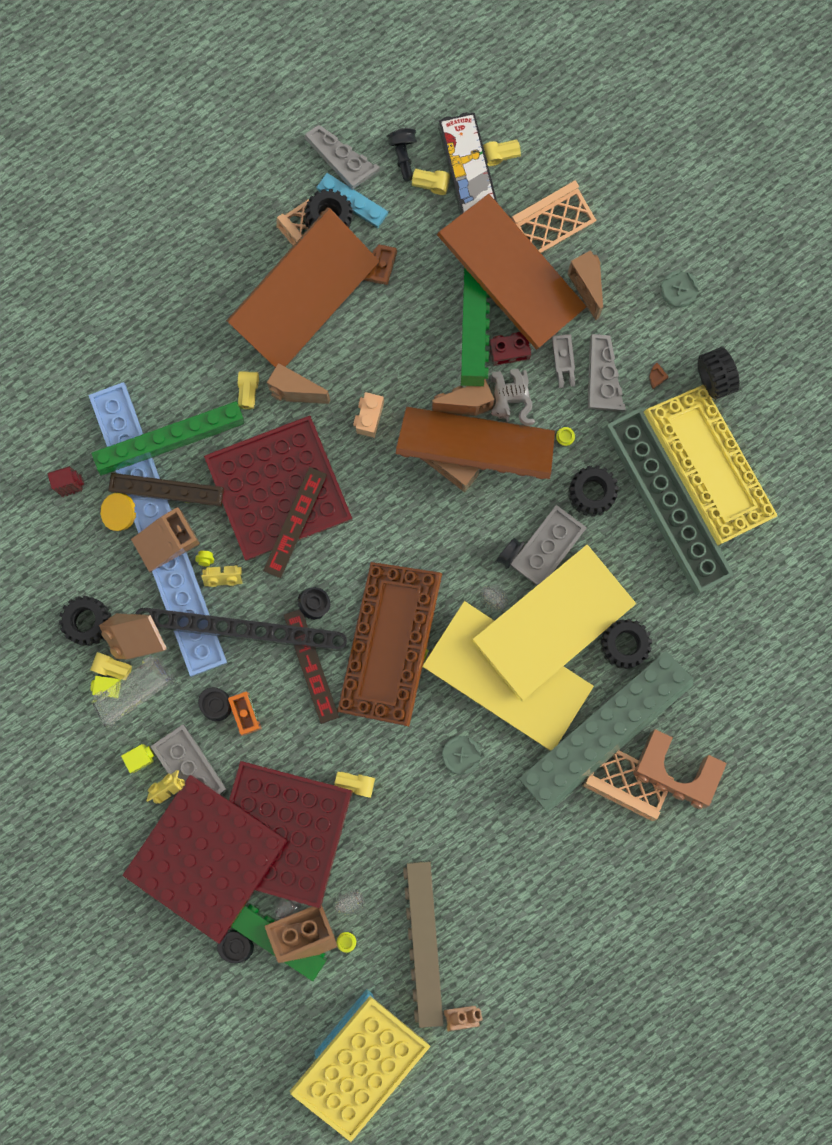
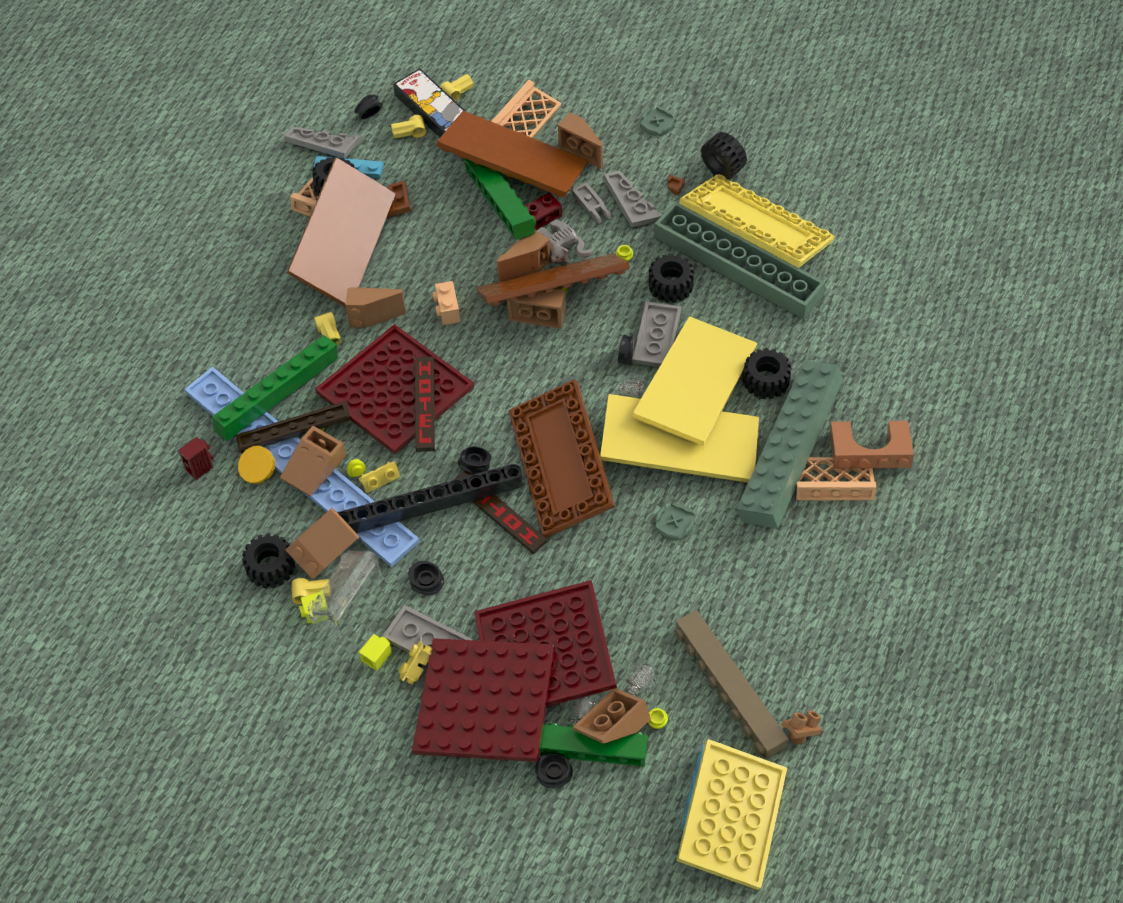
camera: 25 degrees left, 25 degrees down
(244, 713) = (458, 569): orange brick -> none
(358, 784) = (599, 579): light yellow piece -> none
(404, 162) = (379, 125): black axle -> none

